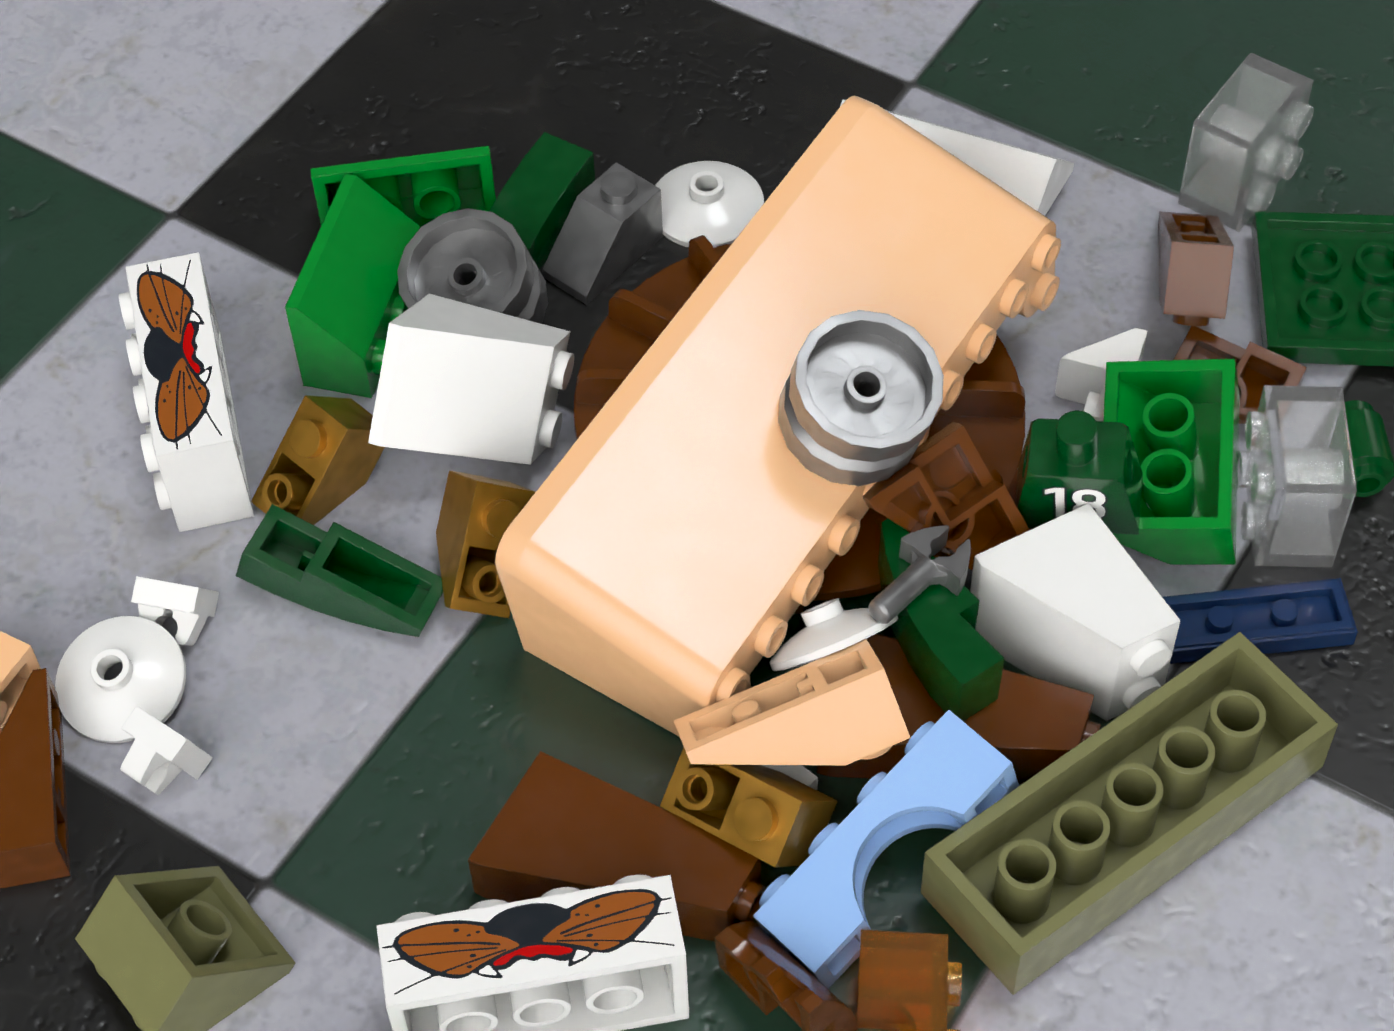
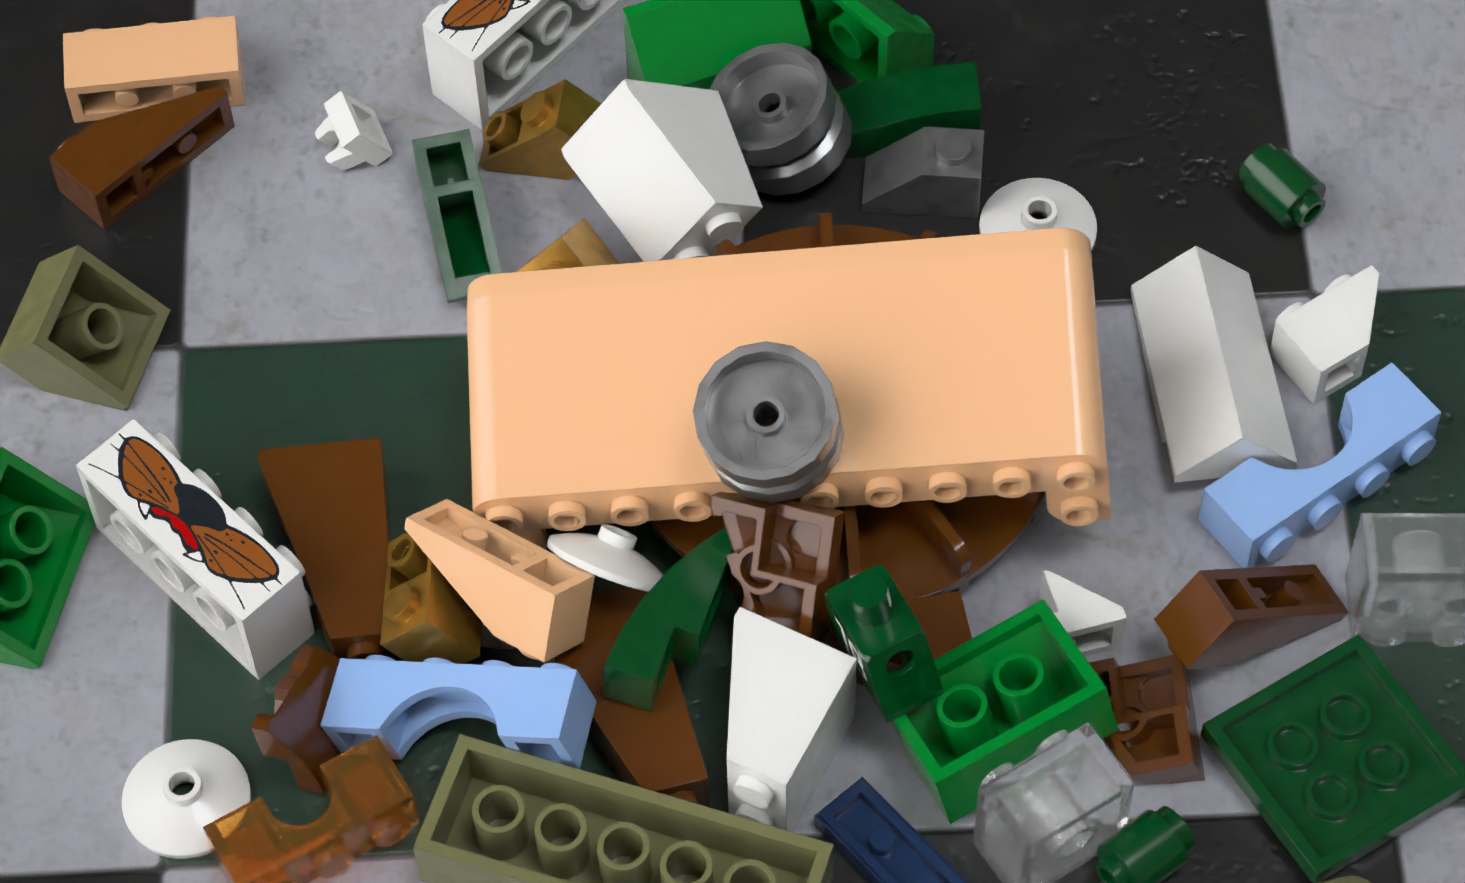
camera: 55 degrees right, 5 degrees up
(150, 677) = (283, 158): white dish -> none
(159, 753) = (226, 209): white tile -> none
(814, 36) = (1283, 186): none -> dark green brick
(917, 550) = (689, 578): flat silver bar -> none
(975, 82) = (1327, 338): none -> white slope
(1094, 203) = (1264, 508): none -> light blue arch

